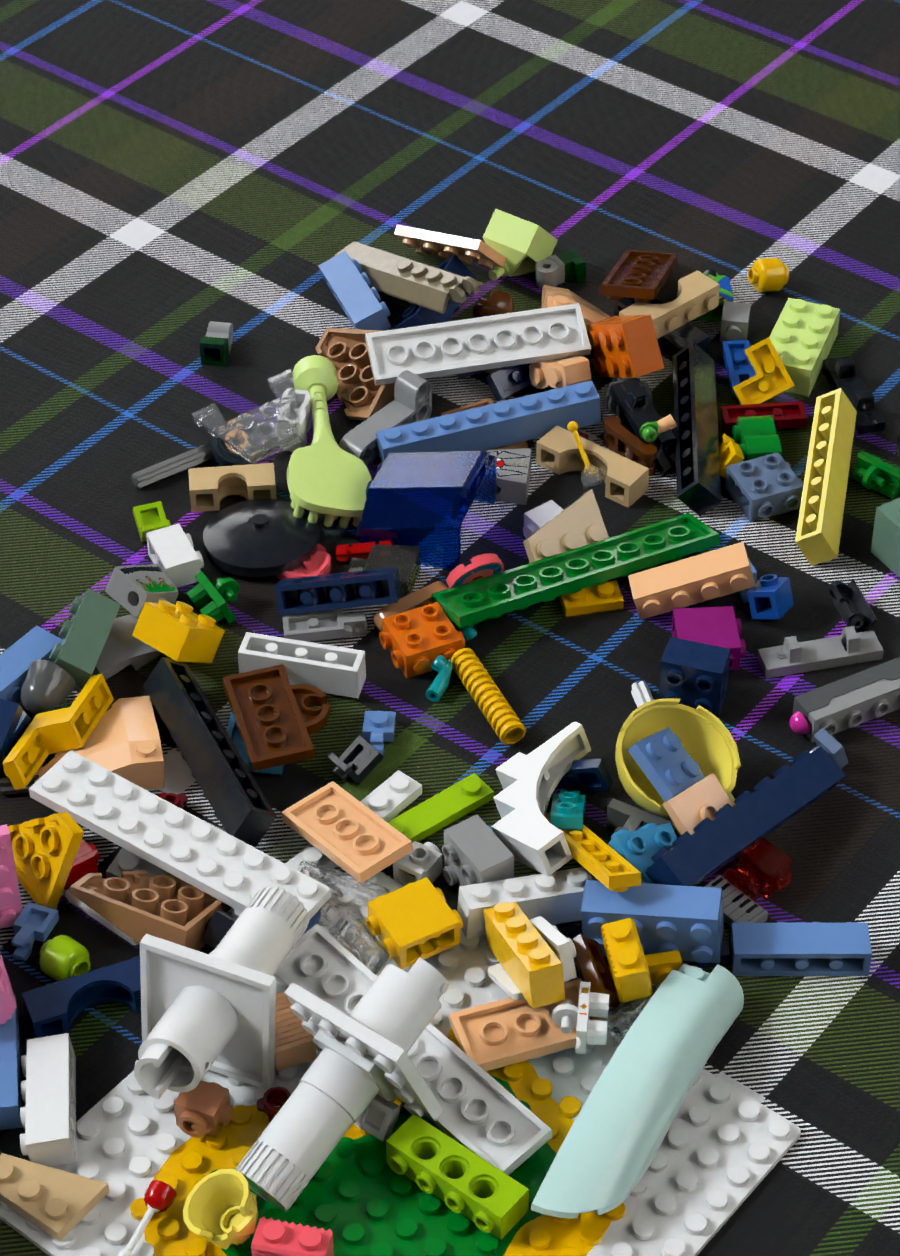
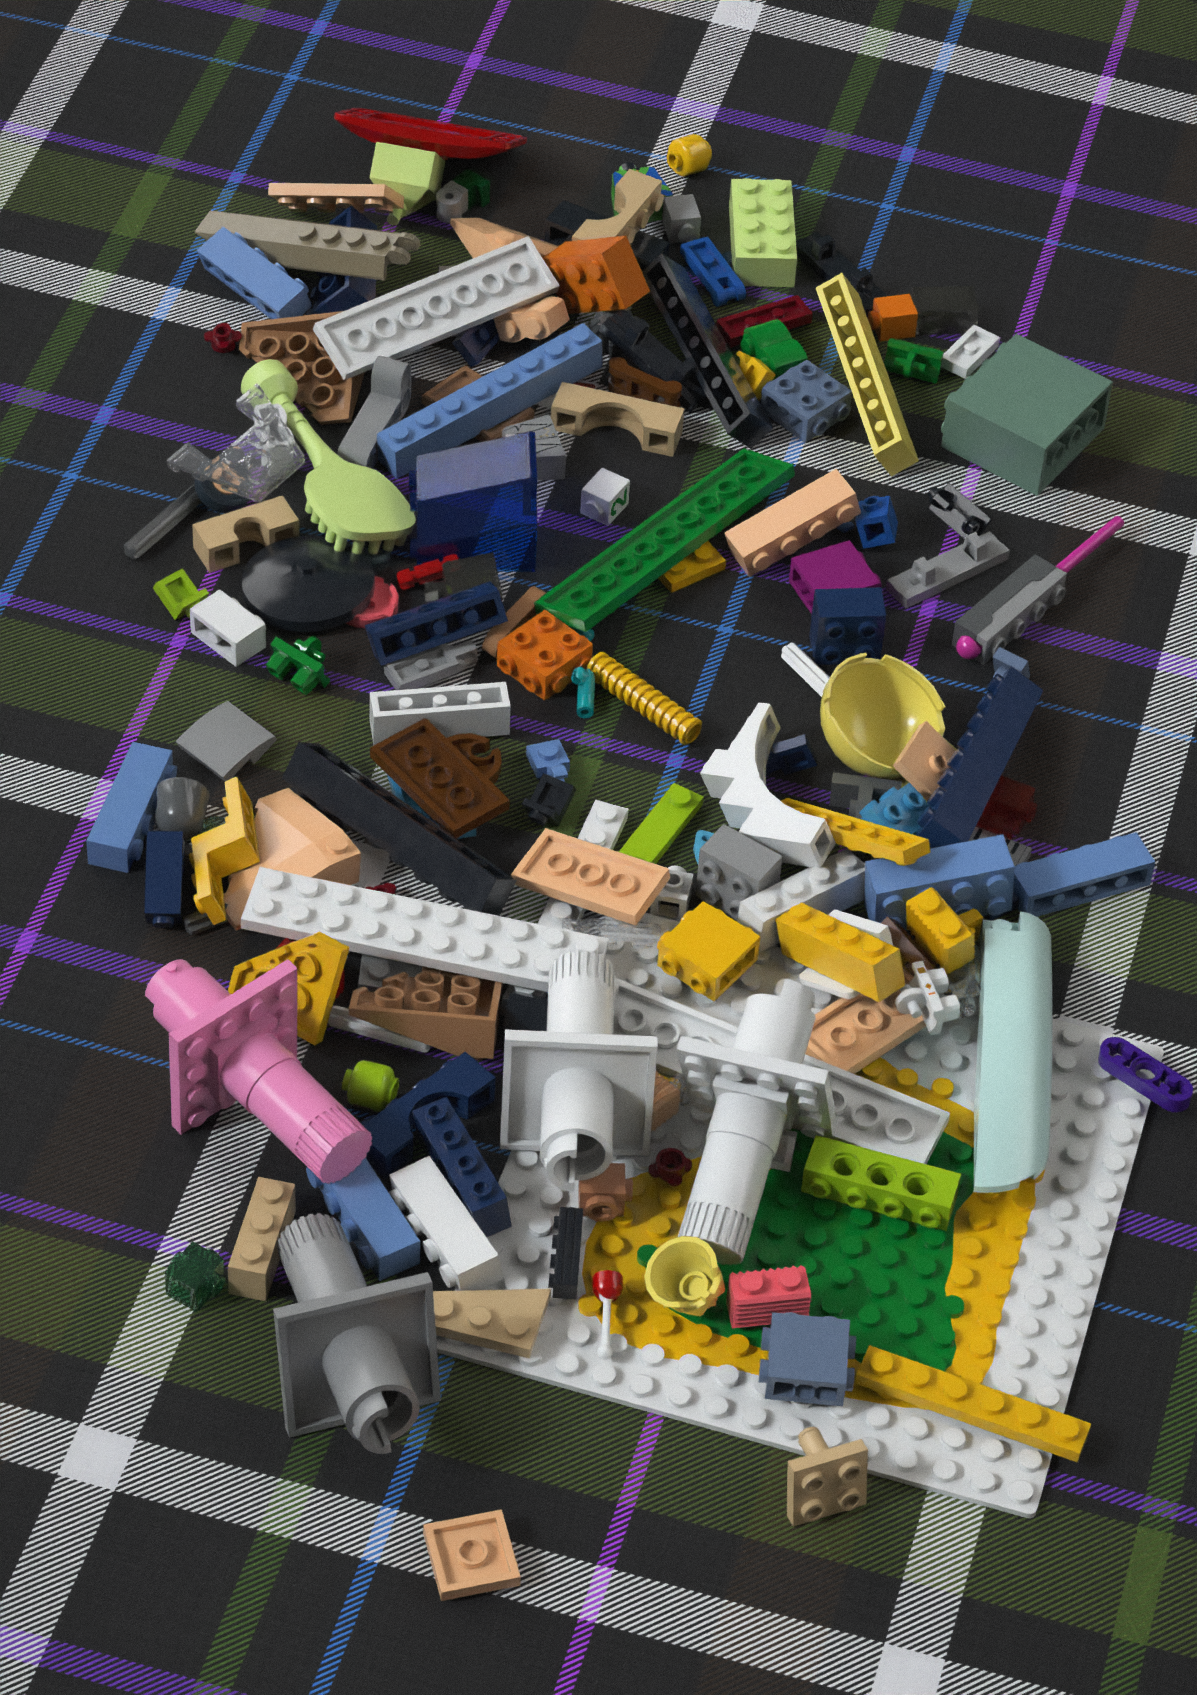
camera: 25 degrees left, 5 degrees up
(32, 924) = (317, 1056): medium blue plate -> none
(84, 635) = (197, 738): sand green brick -> none
(93, 1054) = (462, 1165): none -> dark blue brick
(140, 584) = (226, 675): light grey torso -> none
(142, 1156) = (567, 1255): none -> black piece
(178, 631) = (293, 710): yellow brick -> none
(217, 340) = (128, 365): dark green leg -> none
(306, 336) = (223, 338): none -> dark red plate
(355, 936) = (656, 978): clear hinge -> none
(481, 567) = (560, 571): coral tile -> none
(497, 303) = (423, 262): reddish brown hair -> none
(552, 217) = (444, 138): none -> red wedge
(568, 810) = (795, 794): teal hinge -> none
(571, 529) = (637, 498): tan wing -> none
(591, 474) = (621, 427): hinge -> none
(638, 275) = (563, 187): reddish brown plate -> none
(650, 430) = (668, 365): arm -> none
(666, 763) = (877, 723): medium blue plate -> none
(765, 1163) = (1138, 1060): none -> dark purple beam
(770, 375) = (756, 273): yellow plate -> none
(878, 436) = (893, 317): none -> orange brick

